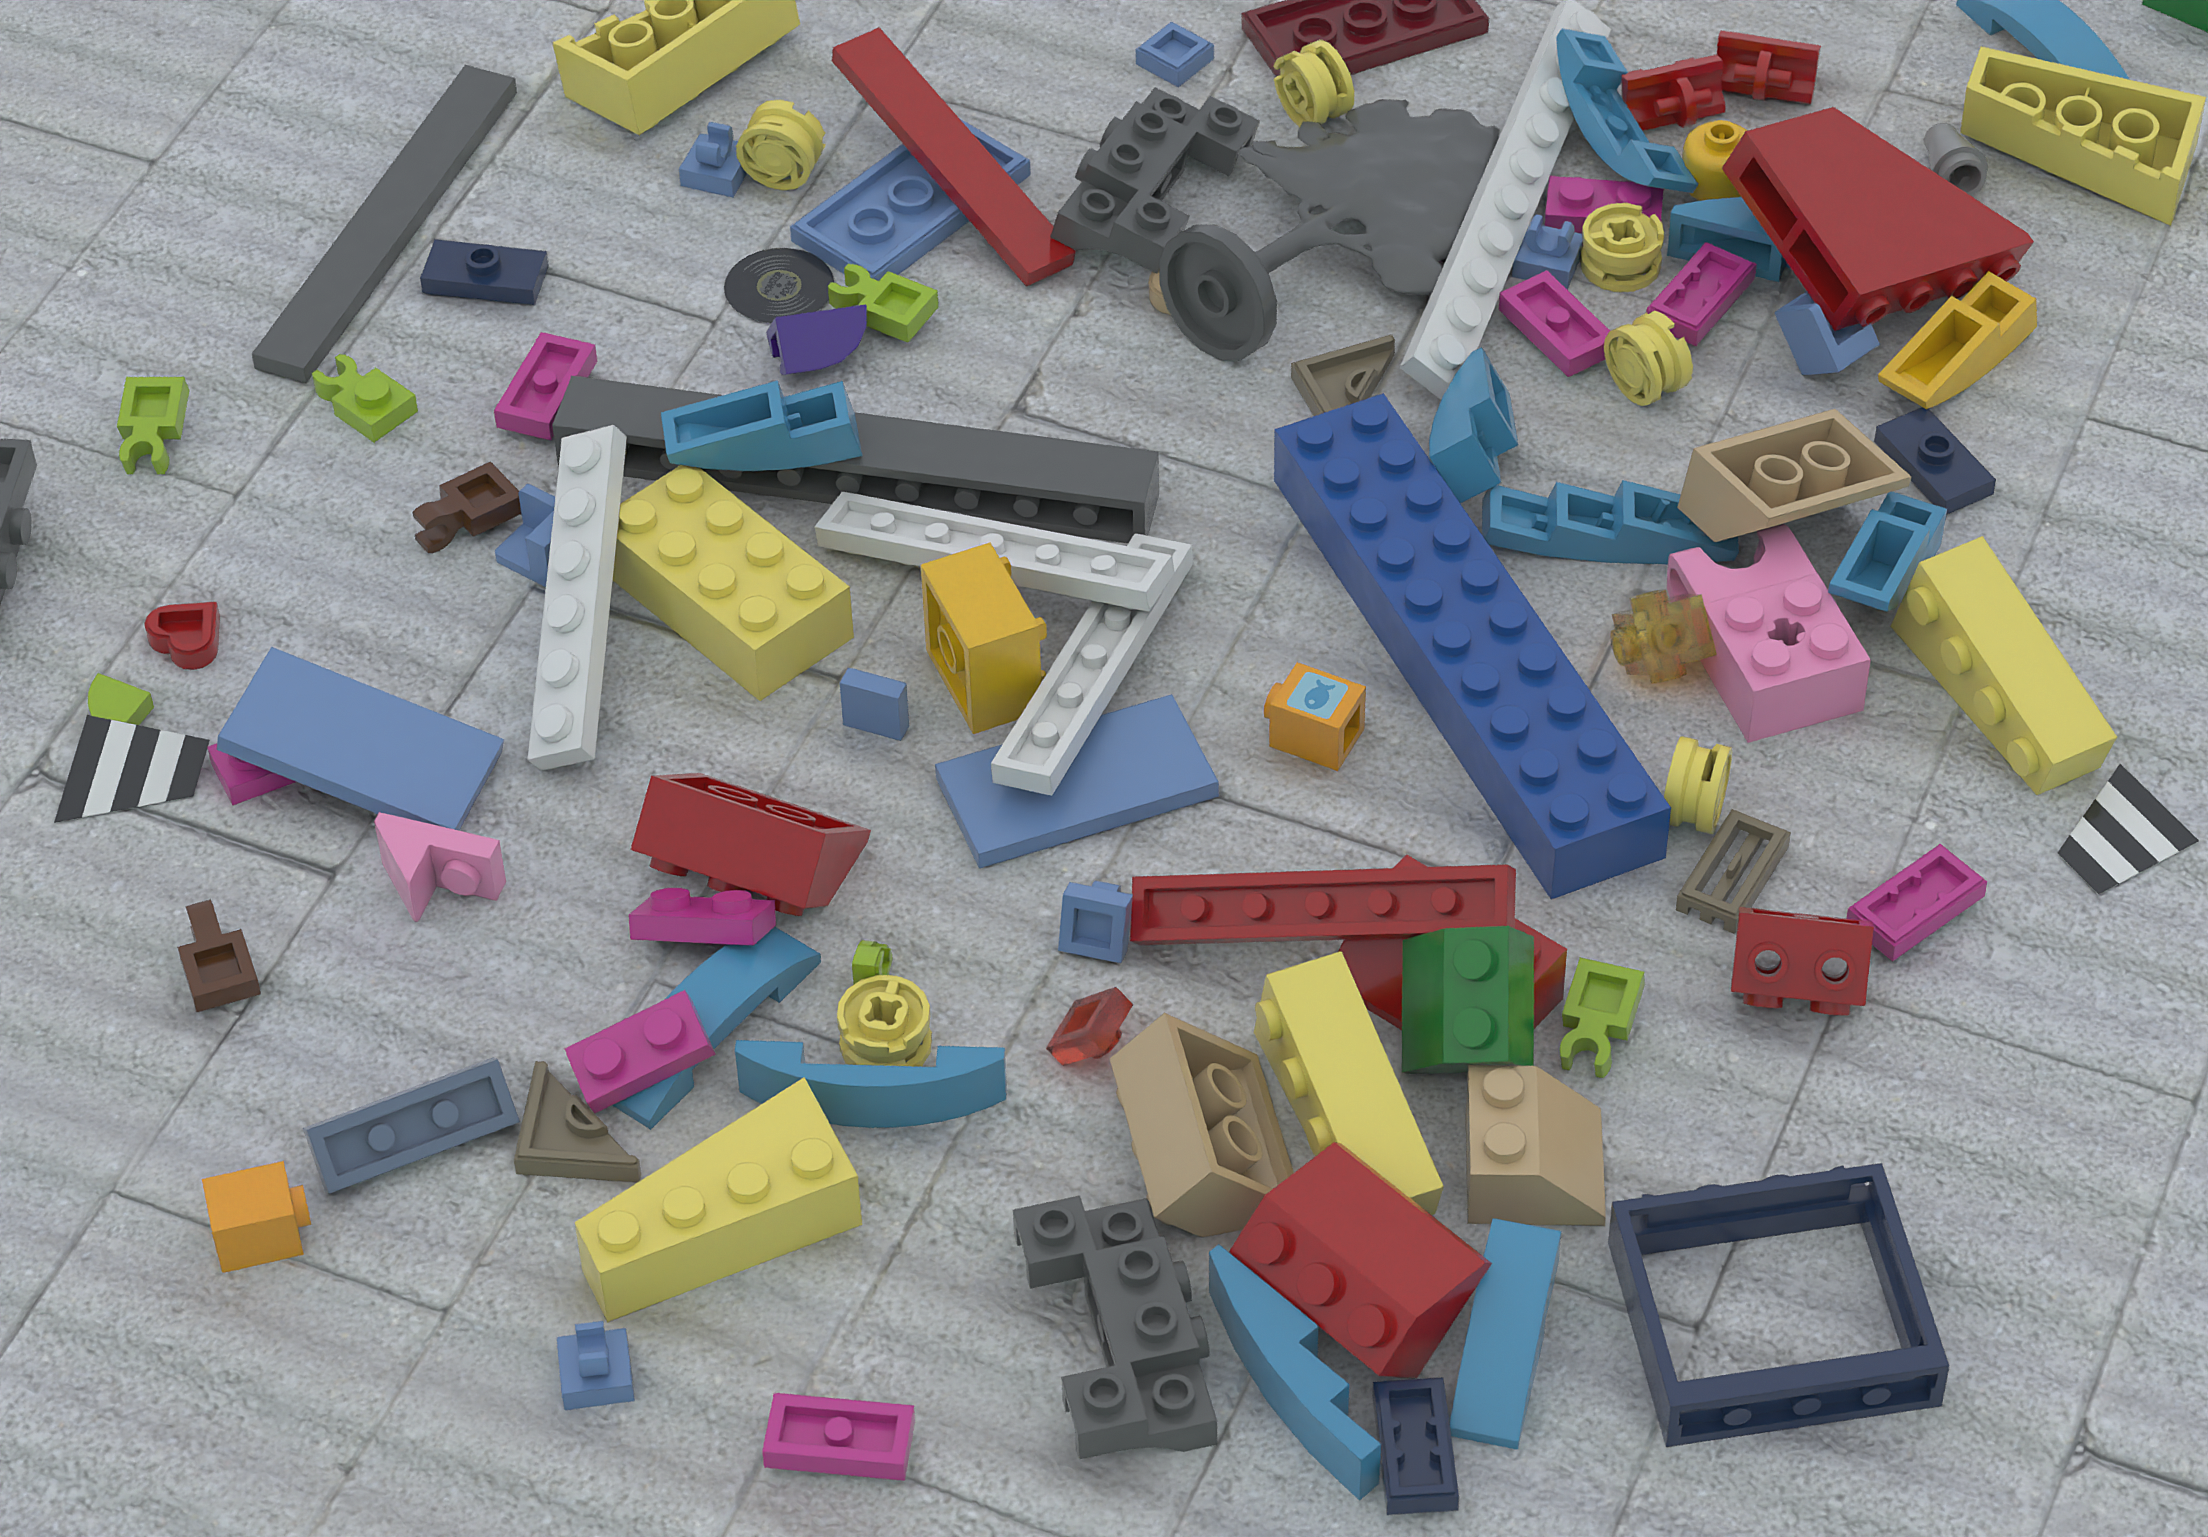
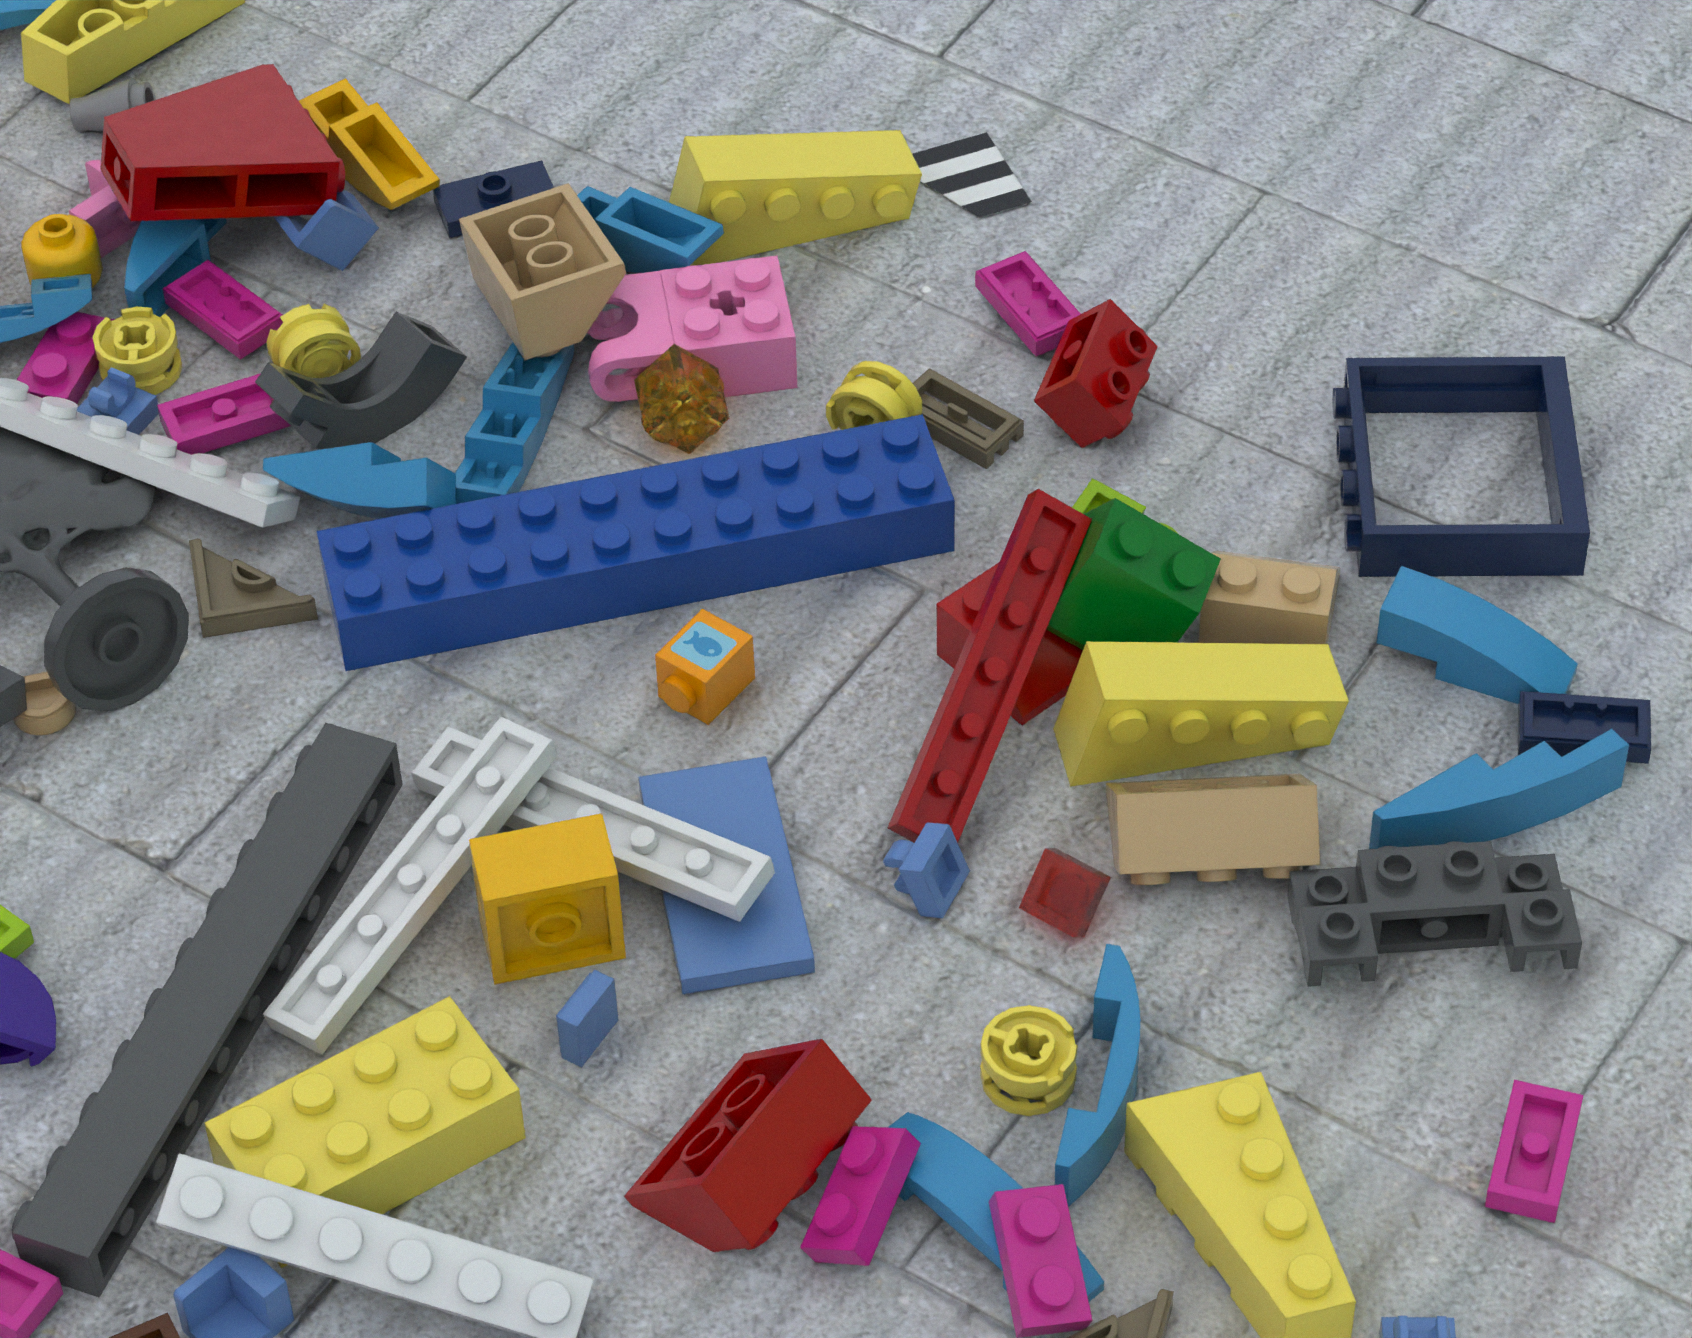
camera: 80 degrees left, 0 degrees up
(763, 429) = (198, 1037): dark azure slope -> none
(871, 960) = (948, 1064): lime tile -> none
(1361, 1261) = (1406, 712): red slope -> none
(1594, 409) = (375, 395): none -> dark grey arch

